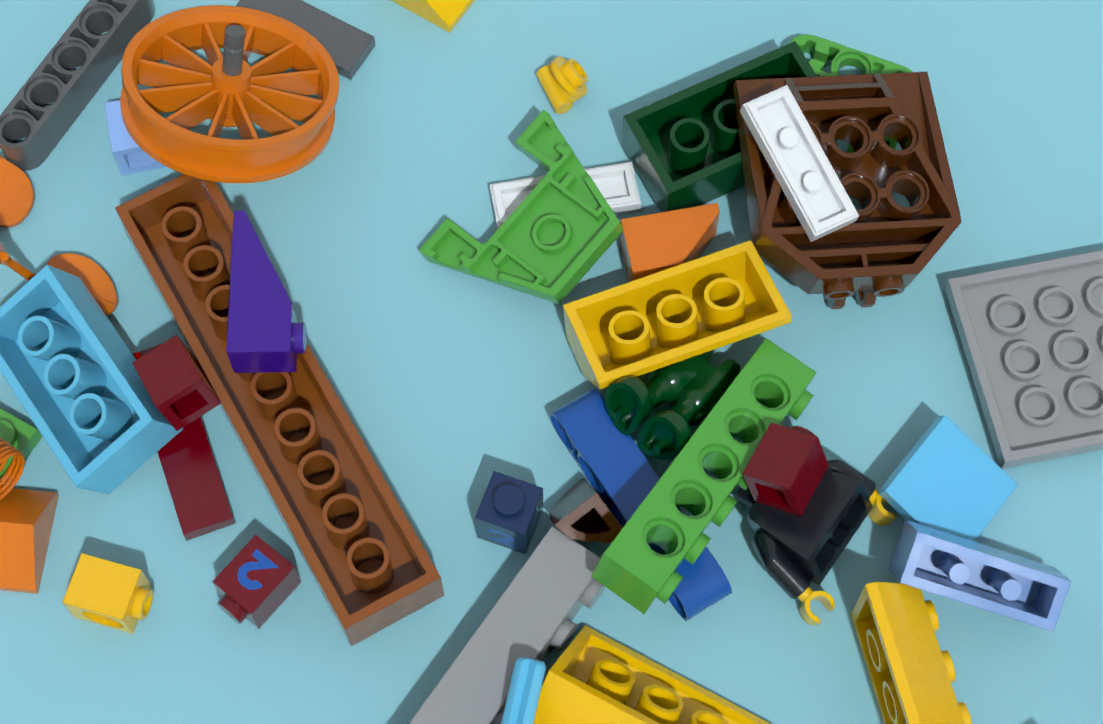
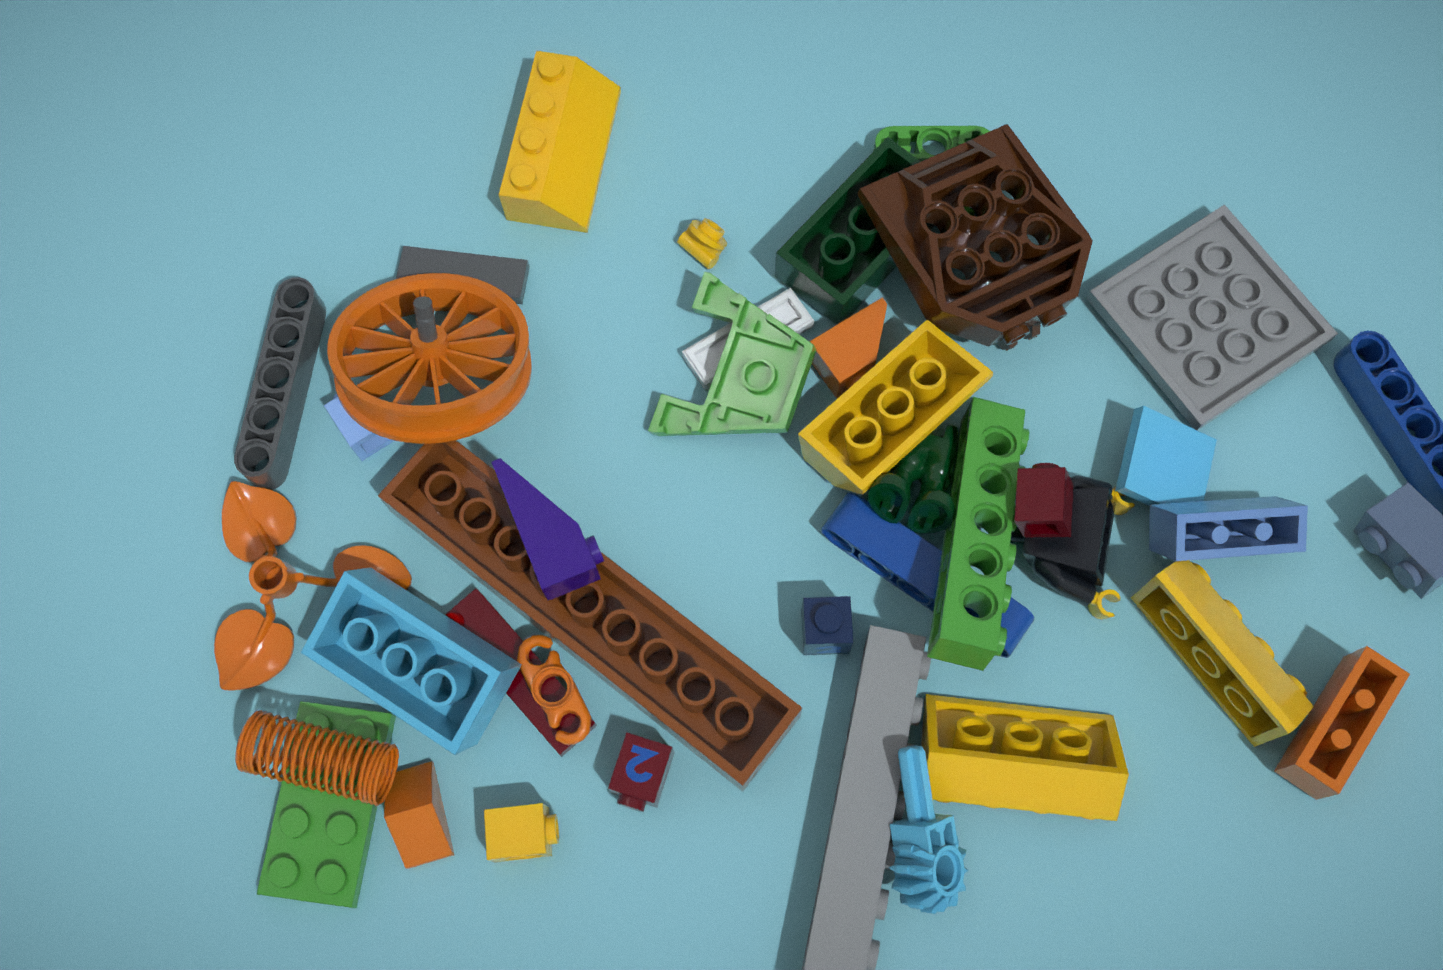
camera: 20 degrees left, 5 degrees up
(176, 383) = (503, 630): dark red brick -> none
(215, 486) = (570, 703): none -> orange piece
(584, 515) = (889, 603): brick -> none
(799, 163) = (947, 240): white tile -> none

